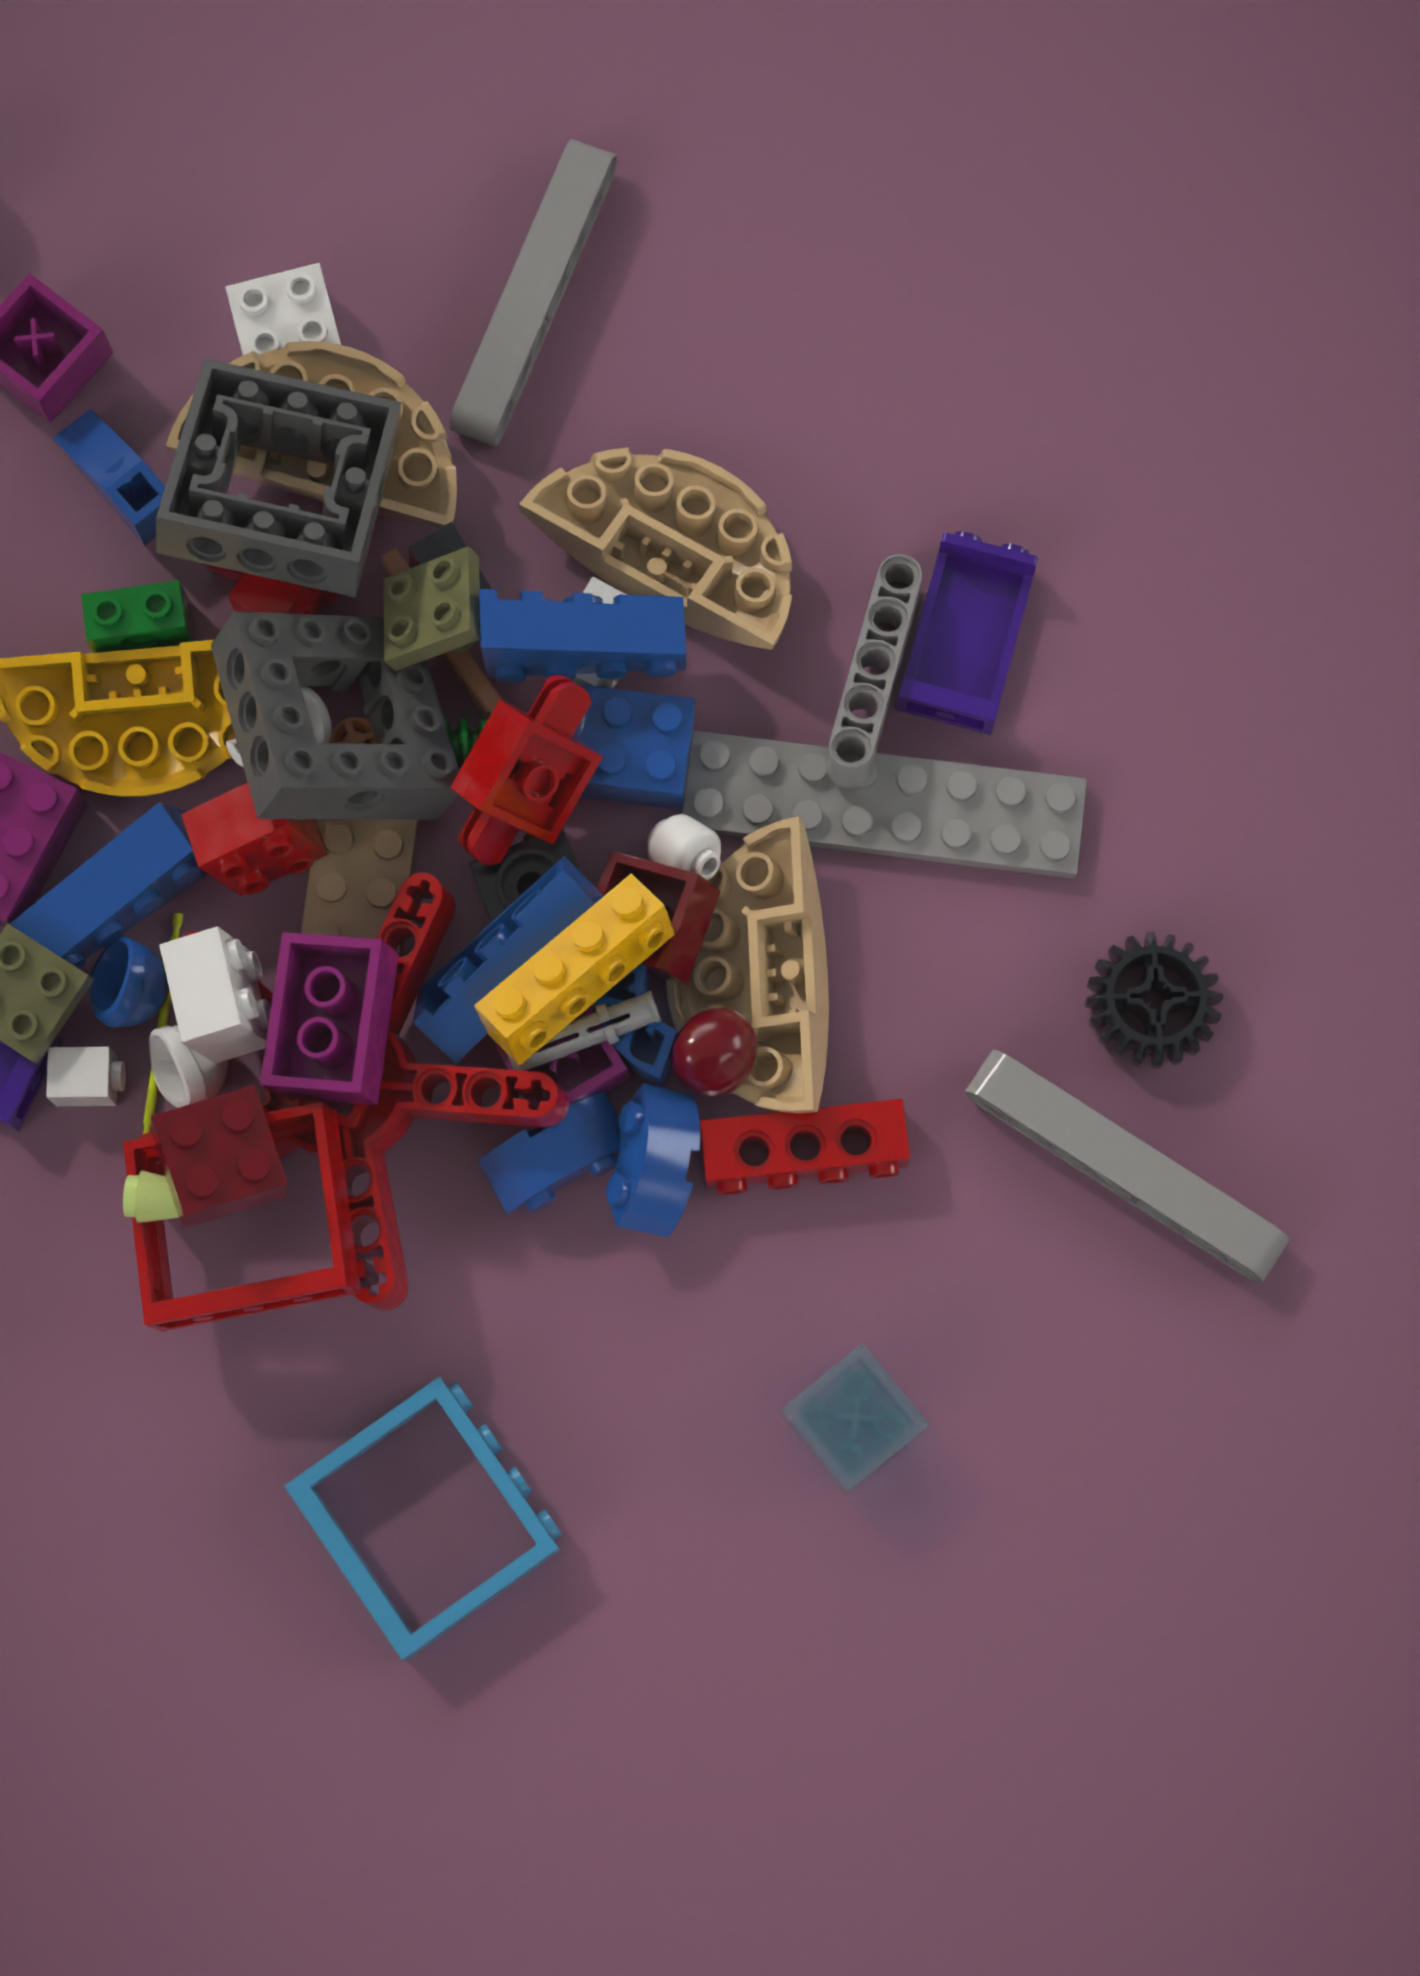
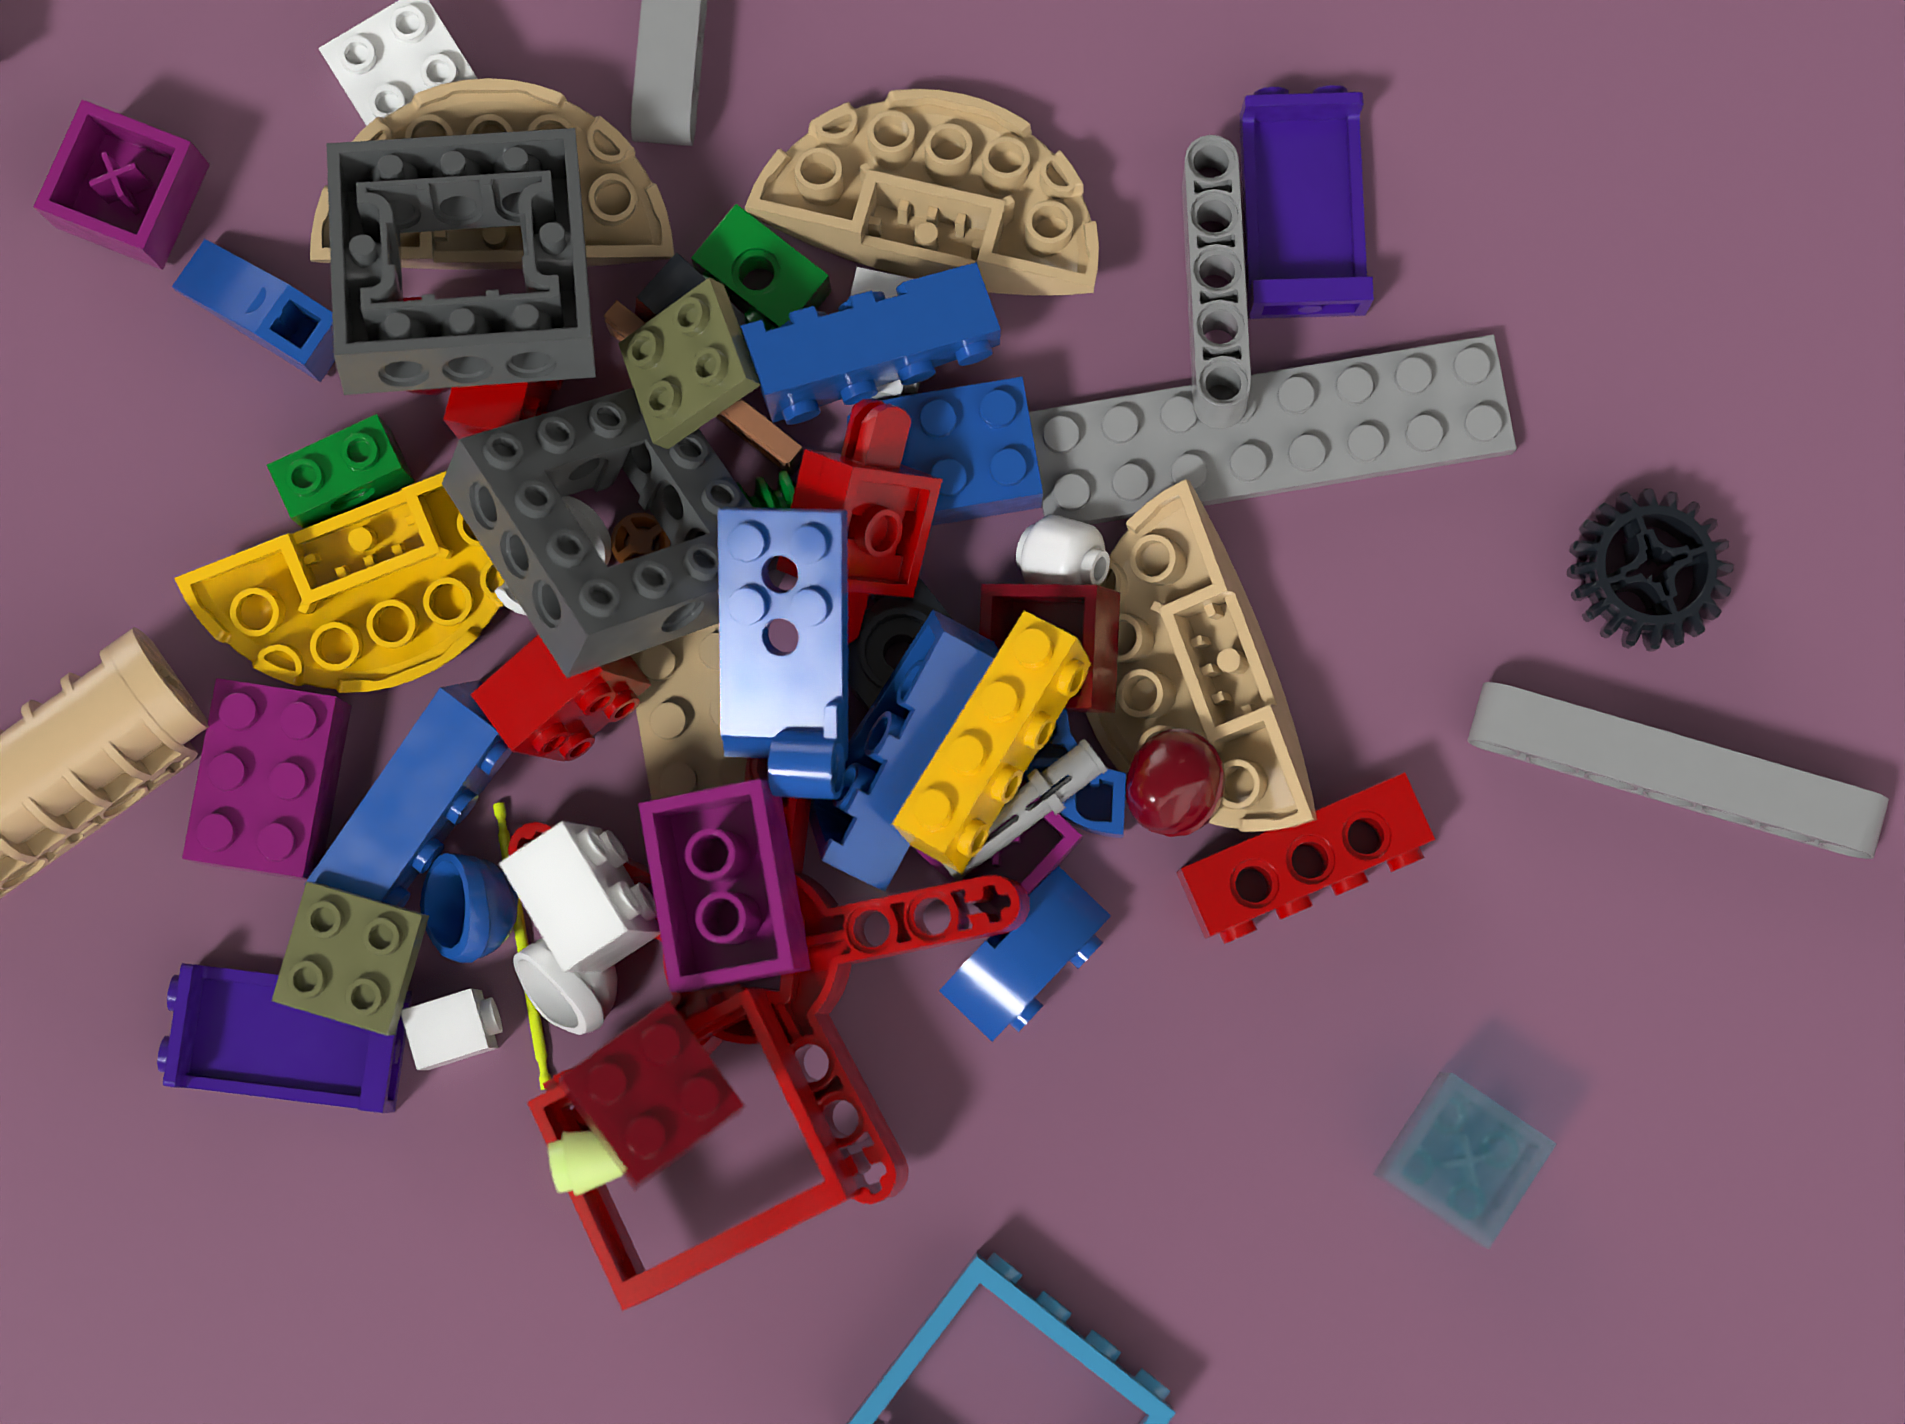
camera: 15 degrees left, 5 degrees up
(427, 892) = (775, 700): none -> hinge
(510, 535) = (746, 244): none -> green brick
(653, 1160) = (1143, 929): blue brick -> none

